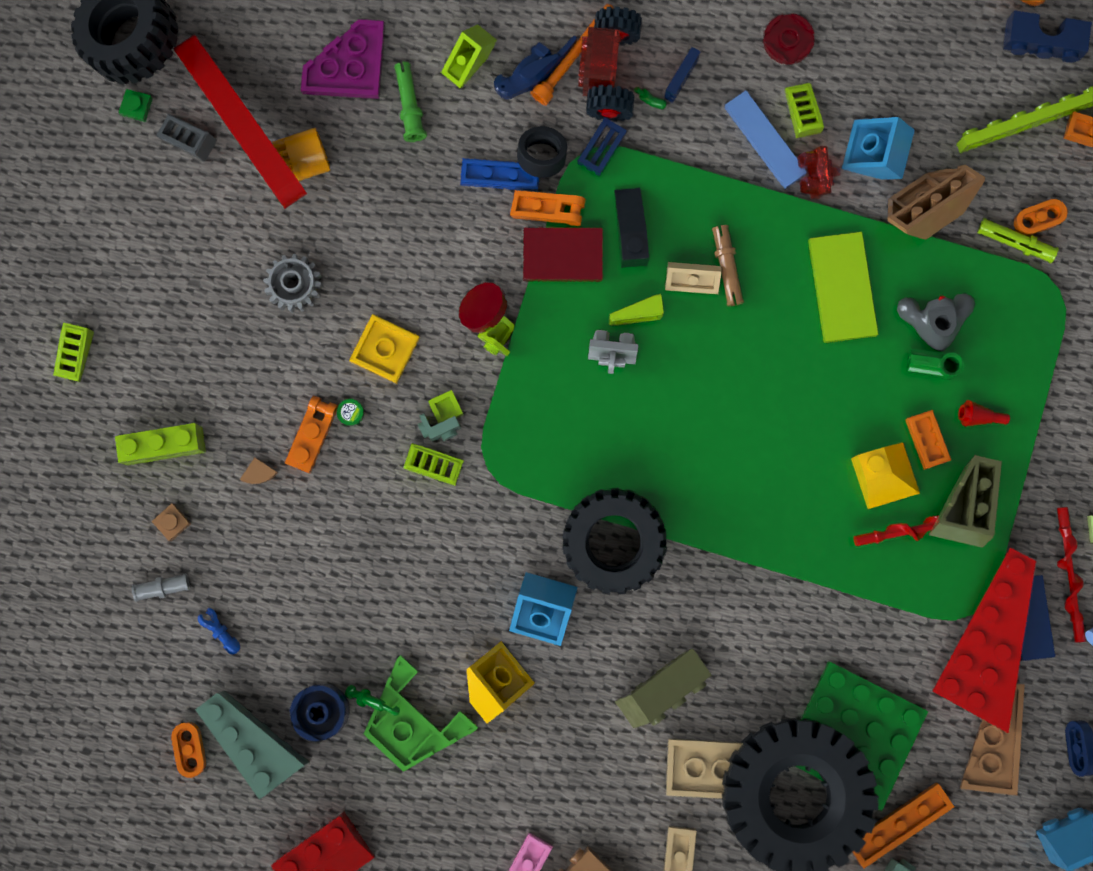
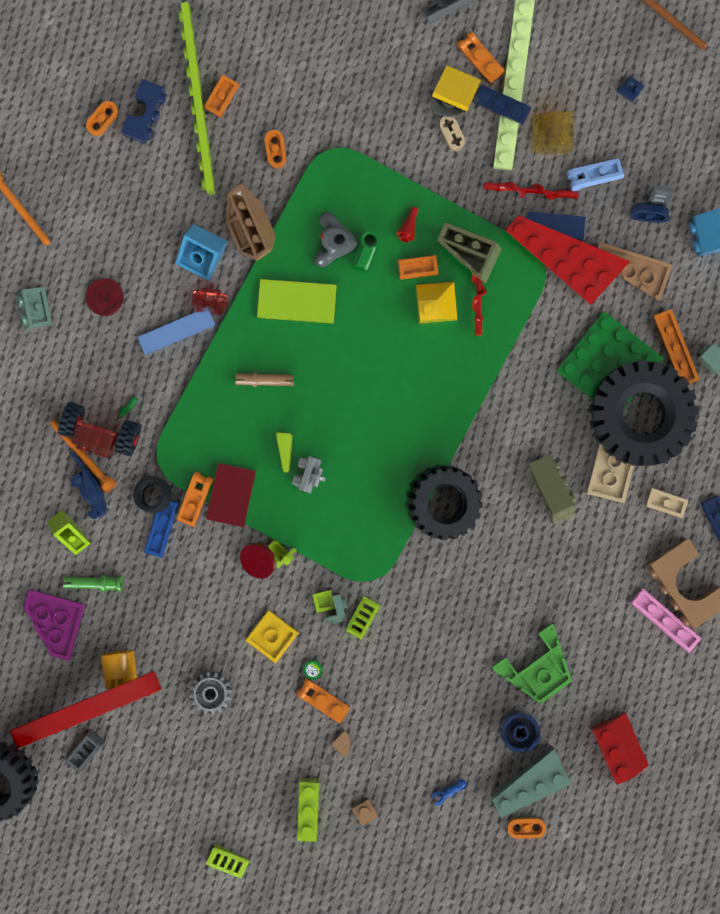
camera: 75 degrees left, 5 degrees up
(135, 105) = (52, 783): green plate -> none
(160, 587) = (409, 827): light grey pin -> none
(365, 698) = (516, 698): green piece -> none
(496, 682) = (524, 604): yellow slope -> none
(543, 608) = (479, 561): dark azure slope -> none
(591, 165) = (154, 457): dark blue tile -> none
(631, 228) = (221, 442): black slope -> none
(682, 74) = (121, 385): dark blue tile -> none
(693, 278) = (268, 406): tan plate -> none
(800, 129) = (175, 298): lime slope -> none
(1027, 244) = (293, 162): lime pin -> none

